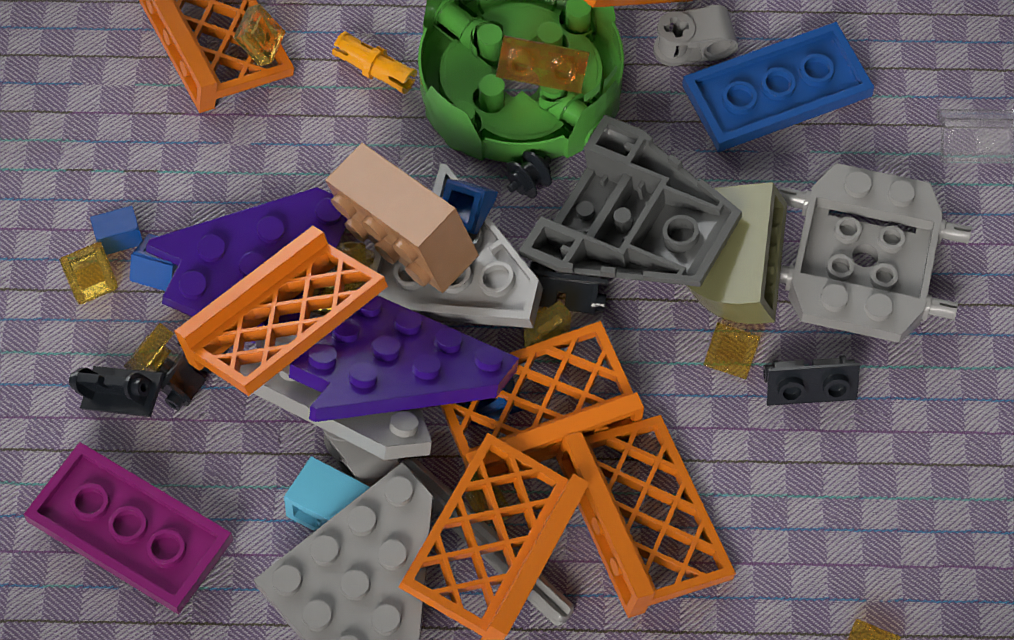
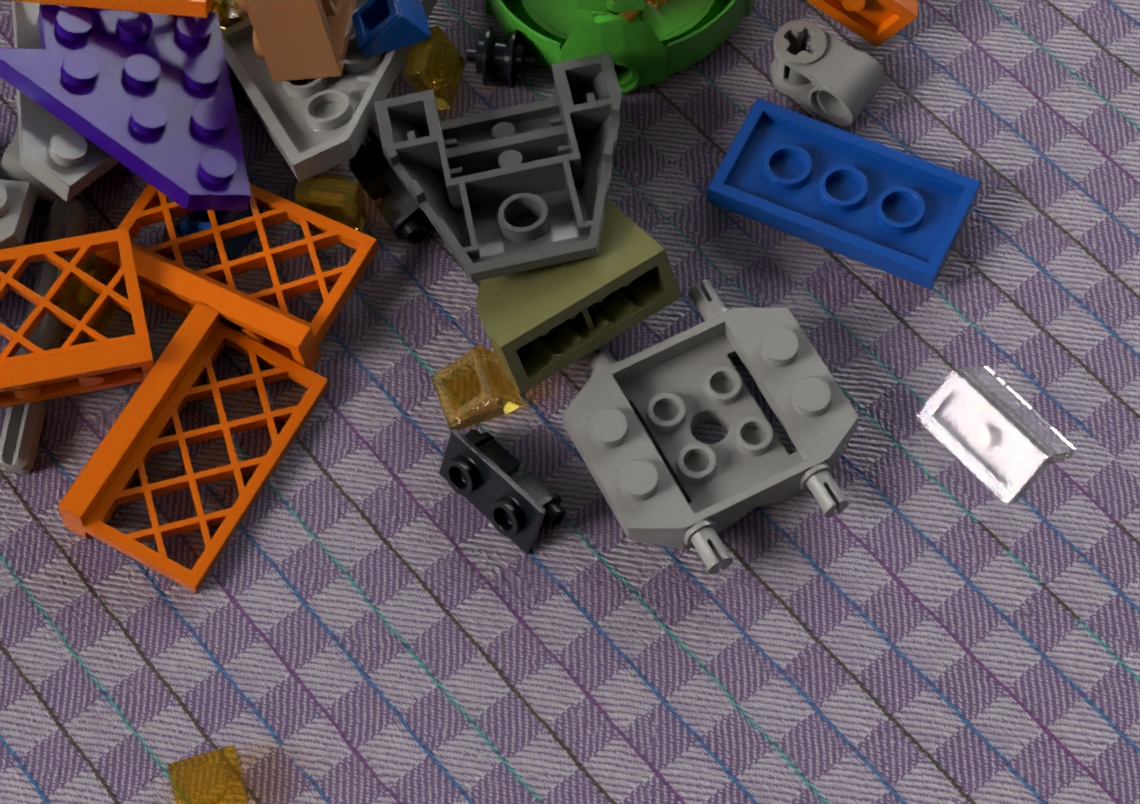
camera: 55 degrees right, 0 degrees up
(506, 216) = (435, 66): none -> clear yellow plate

